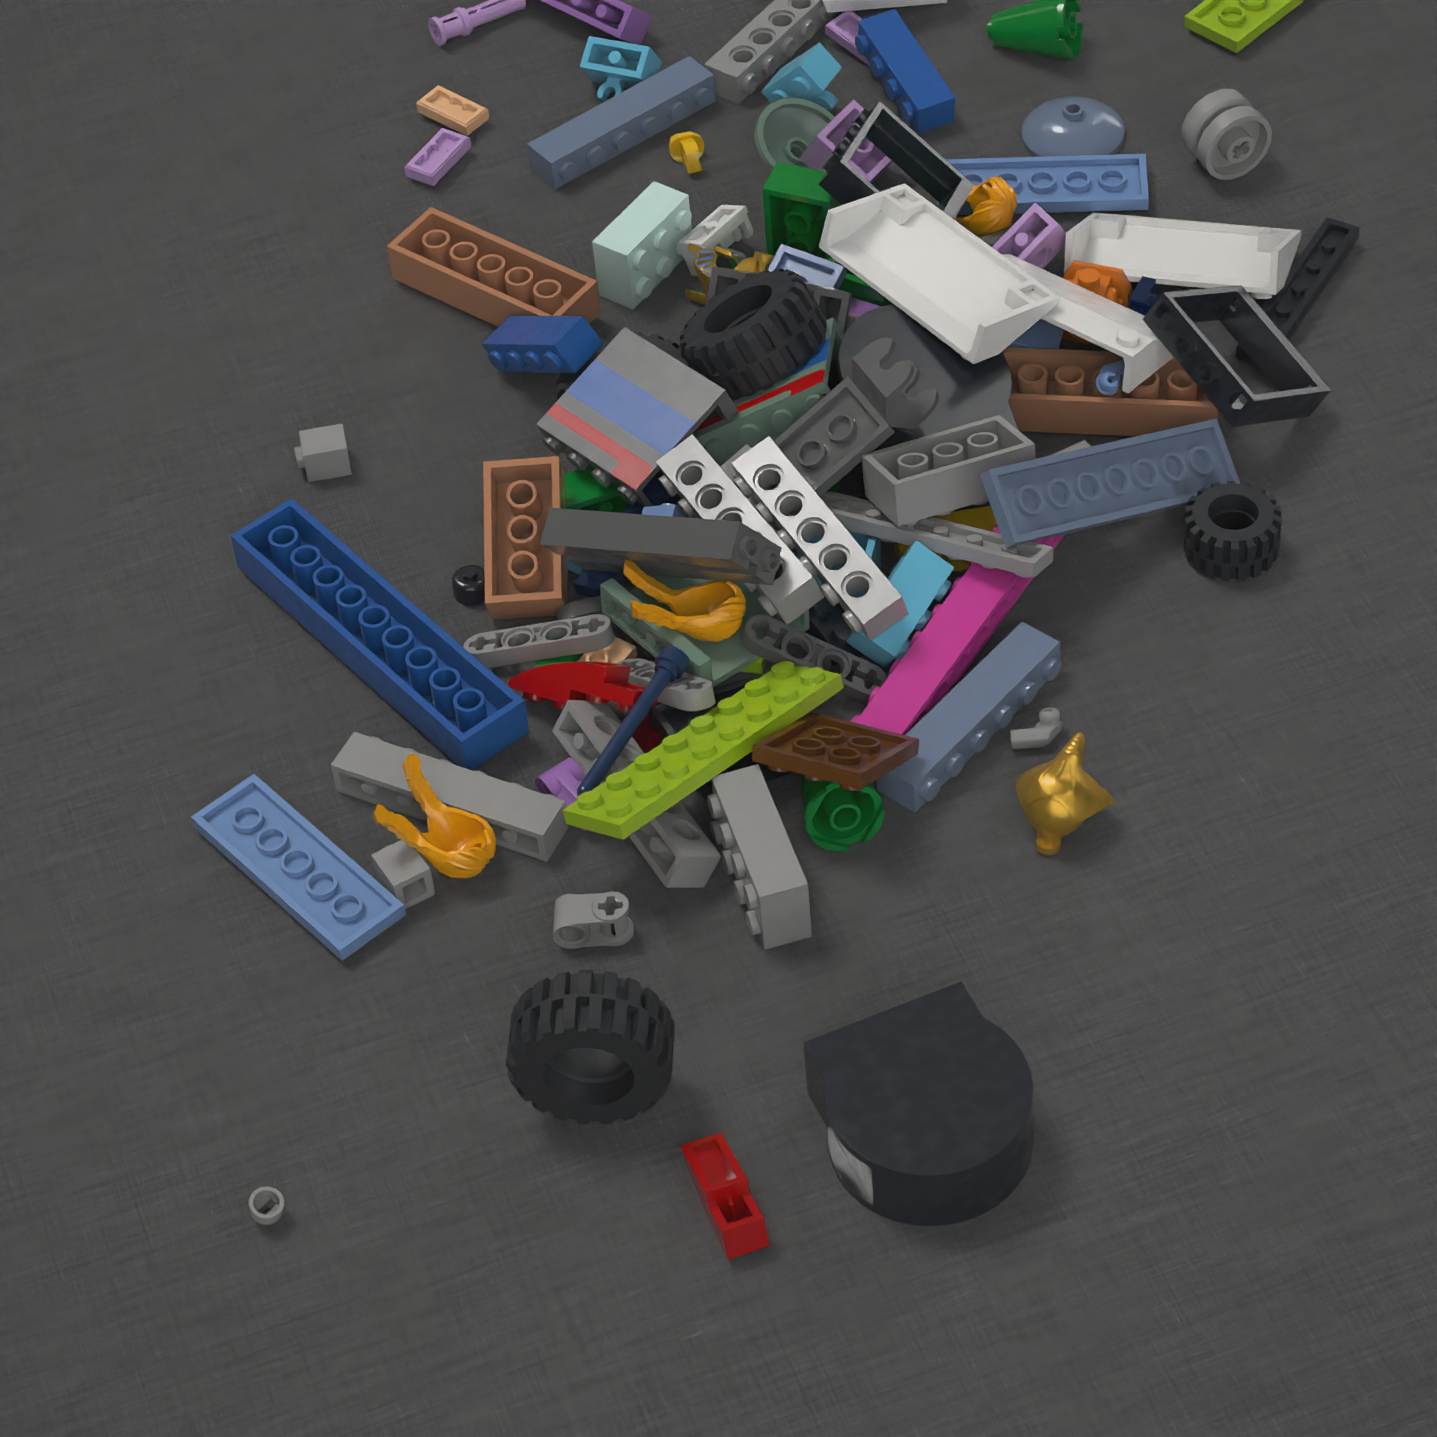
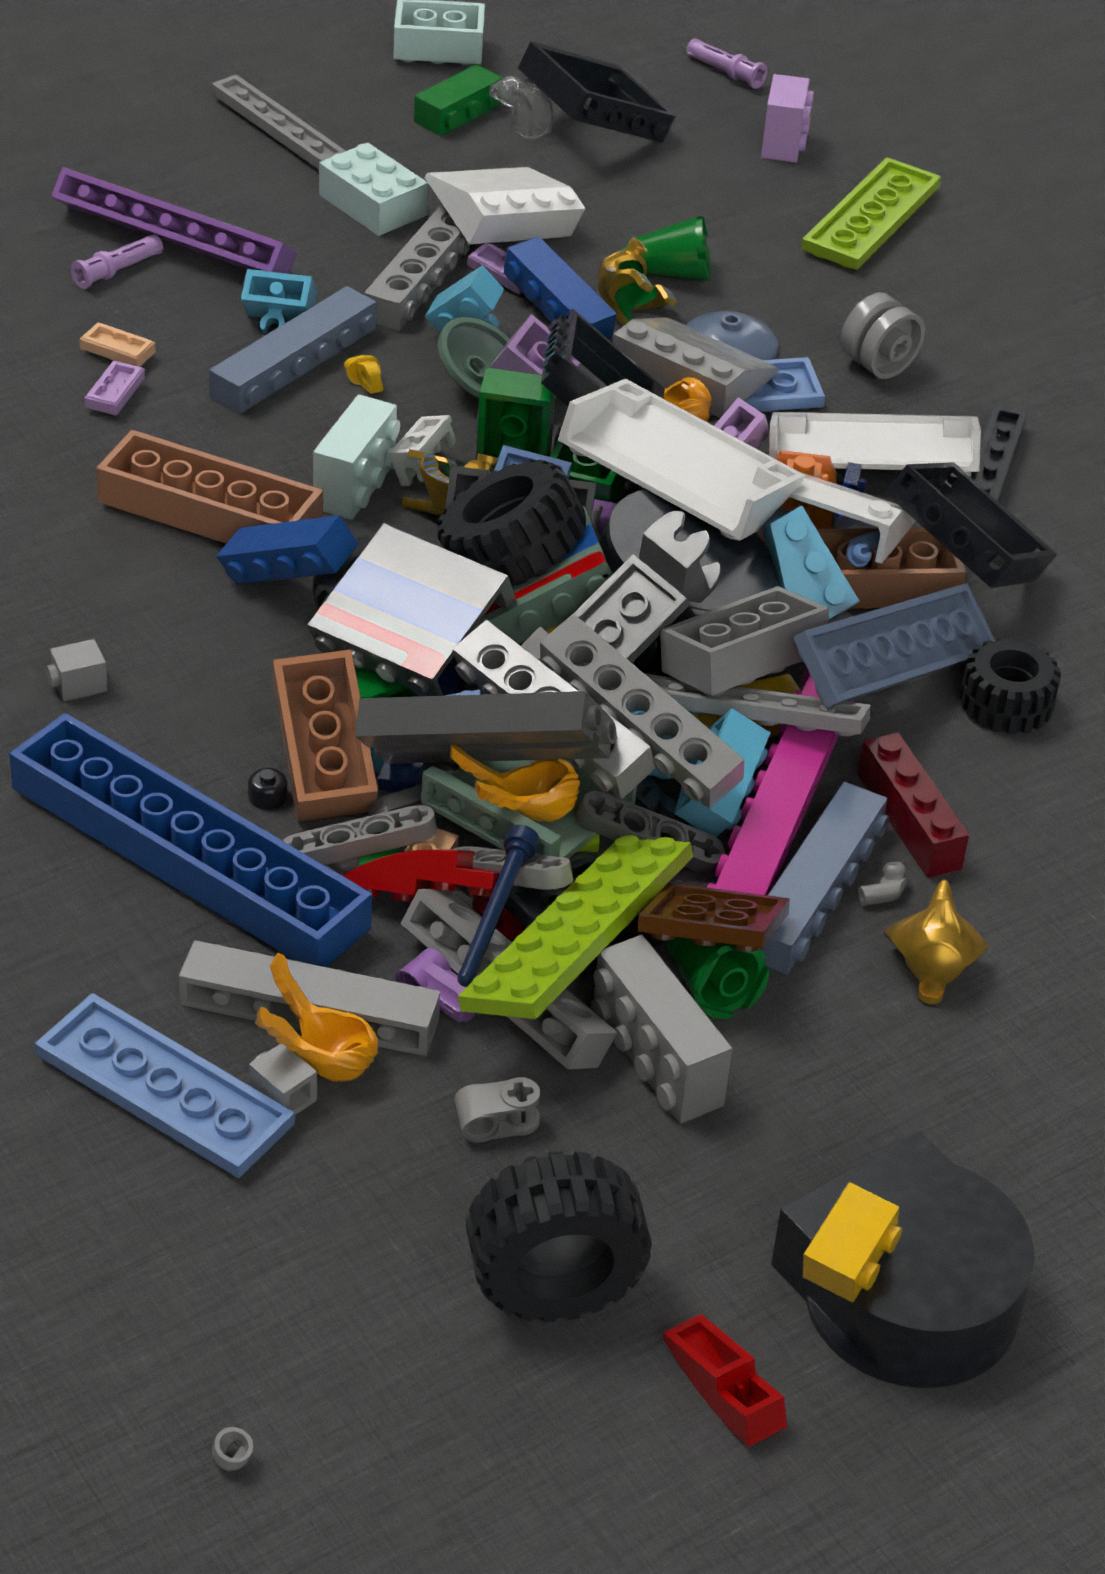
camera: 20 degrees left, 5 degrees down
(847, 1082) = (852, 1242): none -> yellow brick
(977, 64) = (625, 284): none -> pearl gold piece
(1018, 149) = (677, 352): none -> light grey slope
(1043, 399) = (806, 564): none -> medium azure wedge
(1089, 650) = (914, 805): none -> dark red brick

